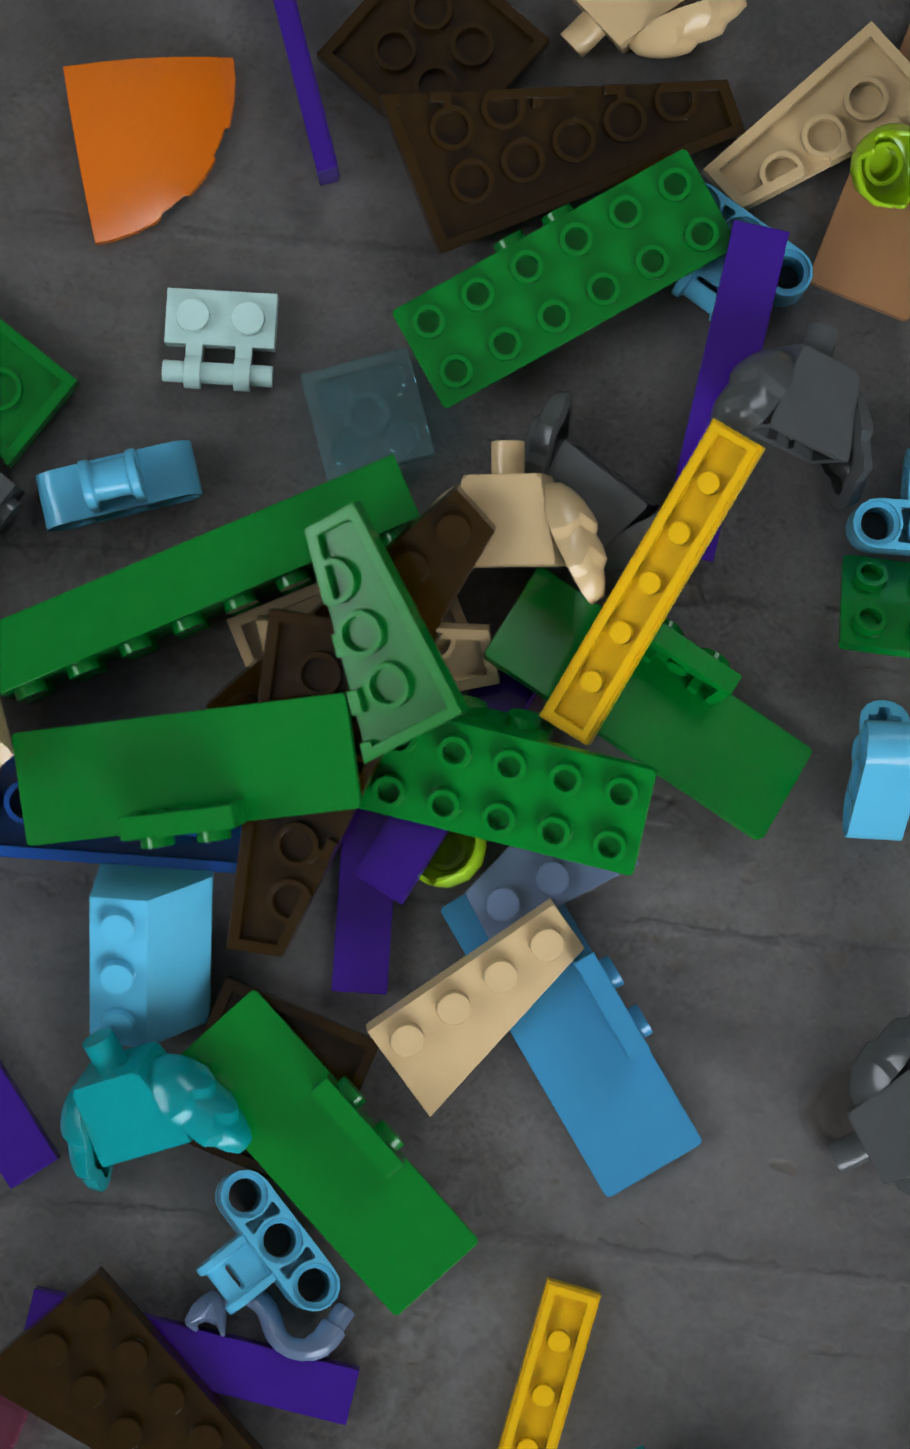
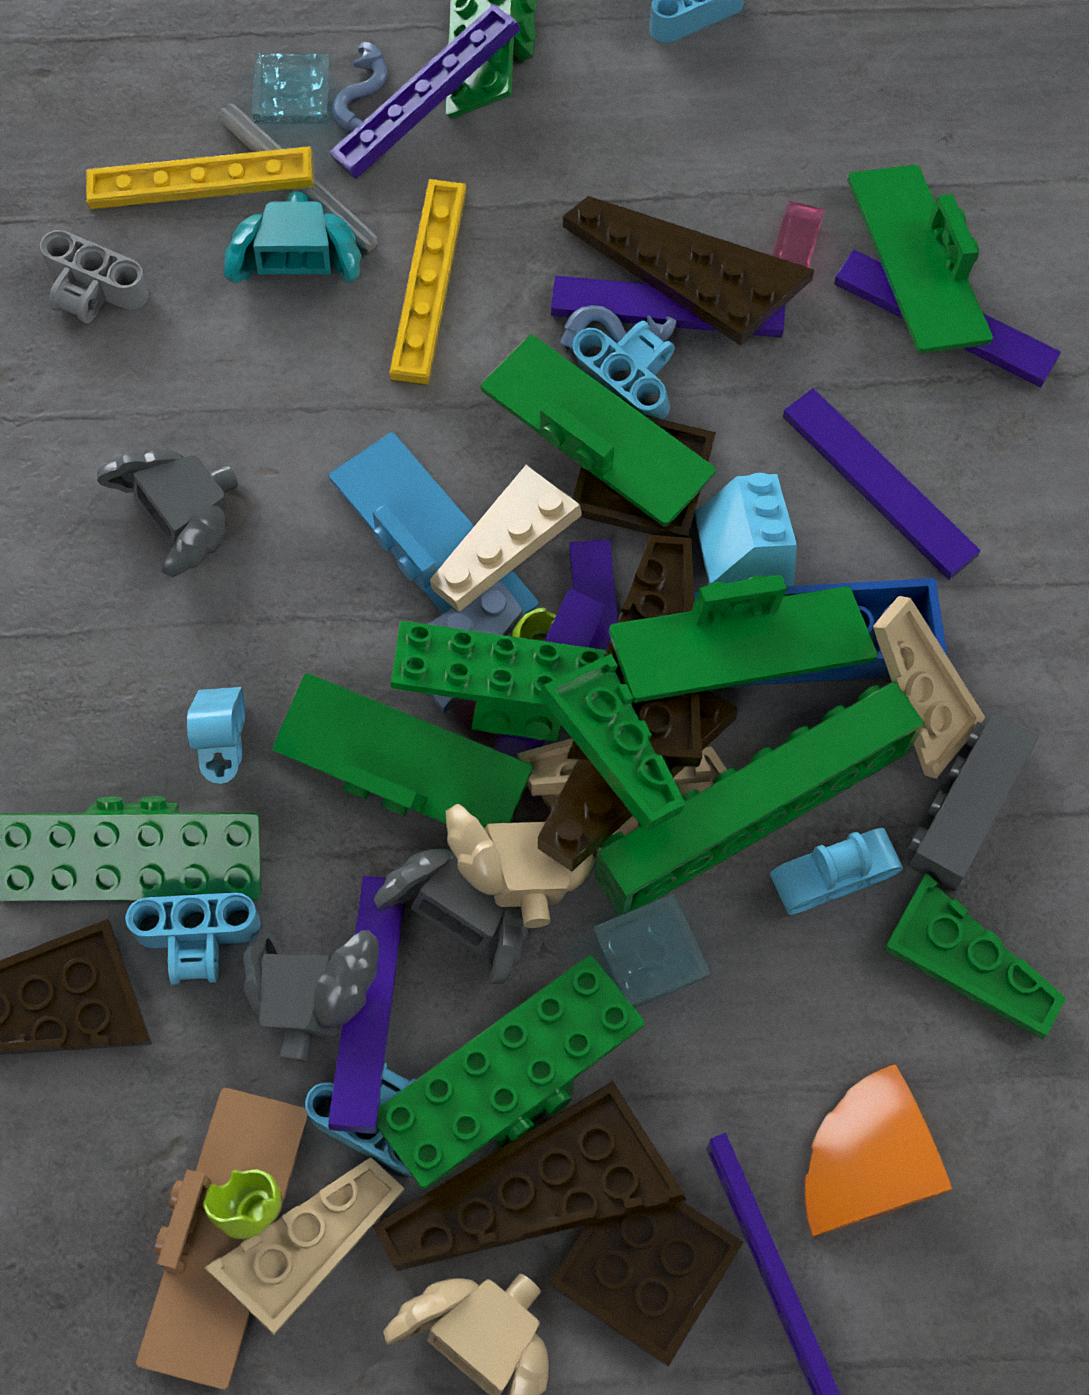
camera: 165 degrees right, 20 degrees down
(143, 1104) = (728, 434): teal torso -> none
(225, 322) = (780, 1013): light aqua plate -> none
(652, 581) = (407, 828): yellow tile -> none

